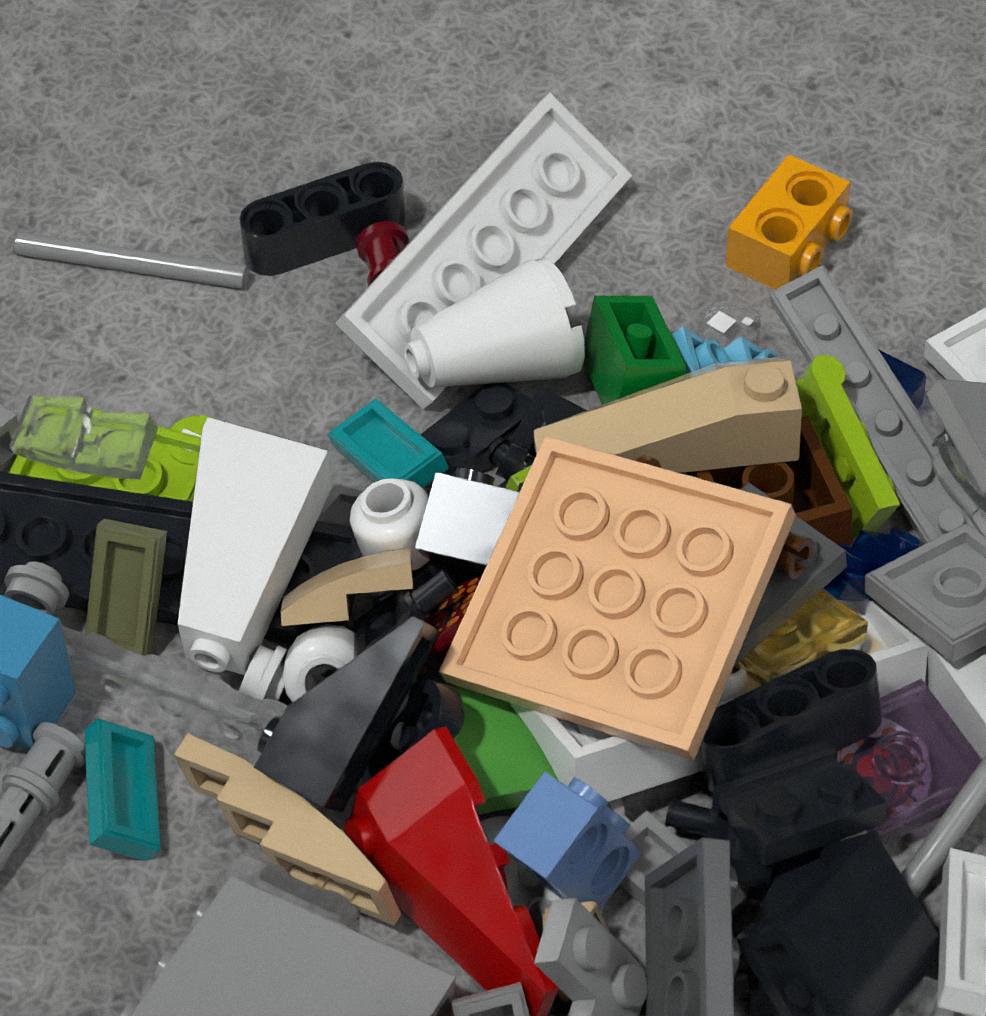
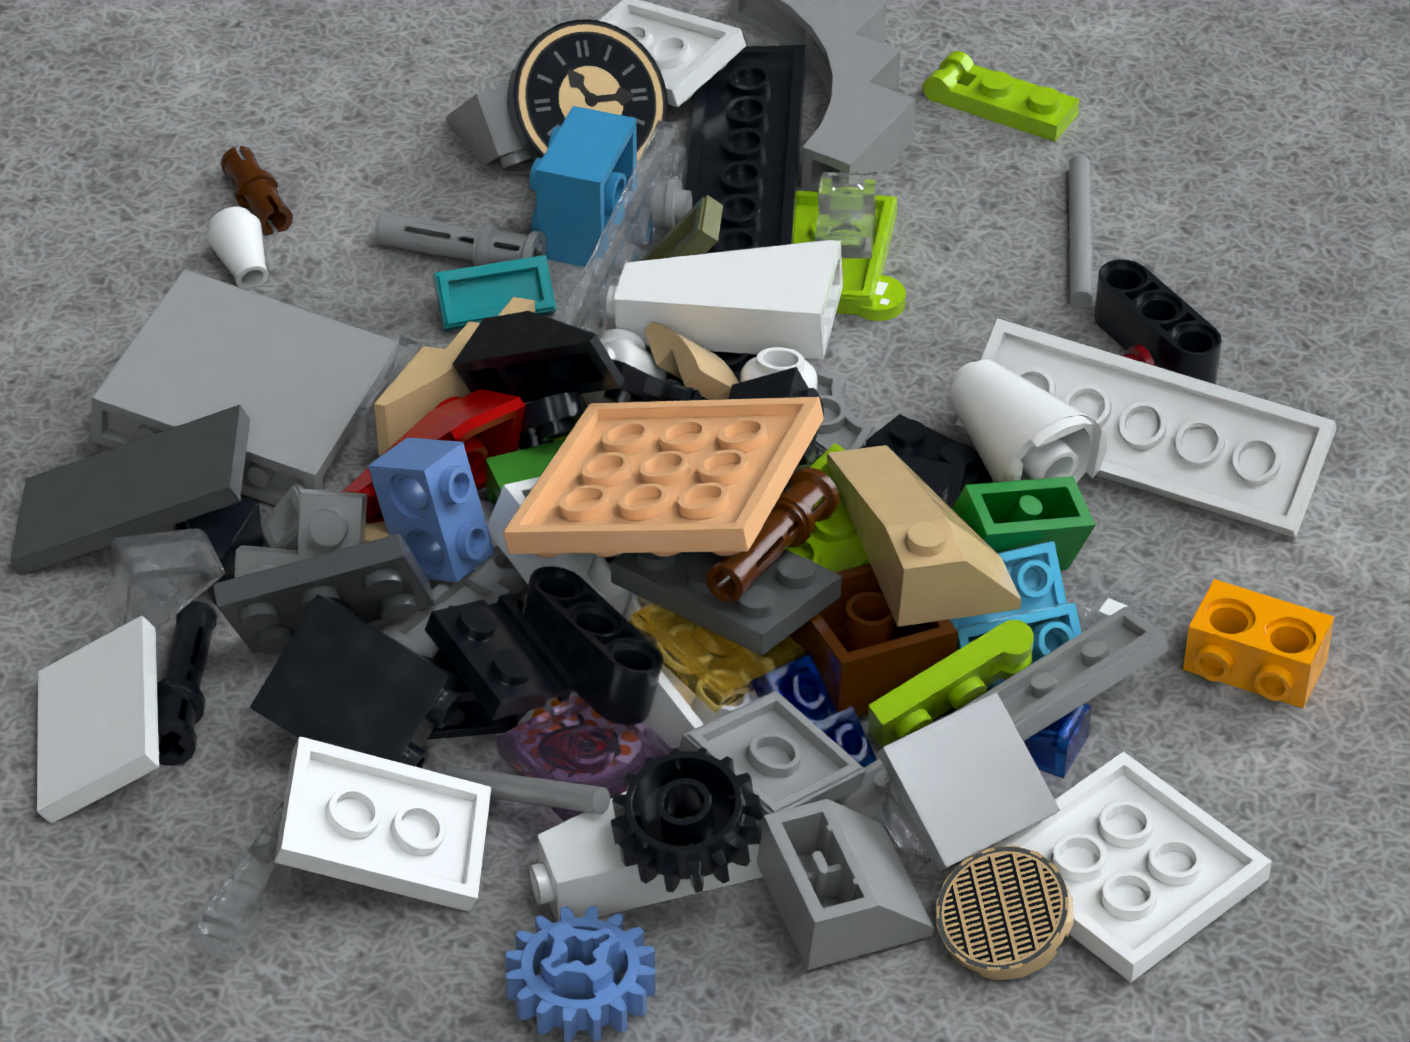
camera: 80 degrees right, 10 degrees down
(386, 446) = (883, 397): teal tile -> none

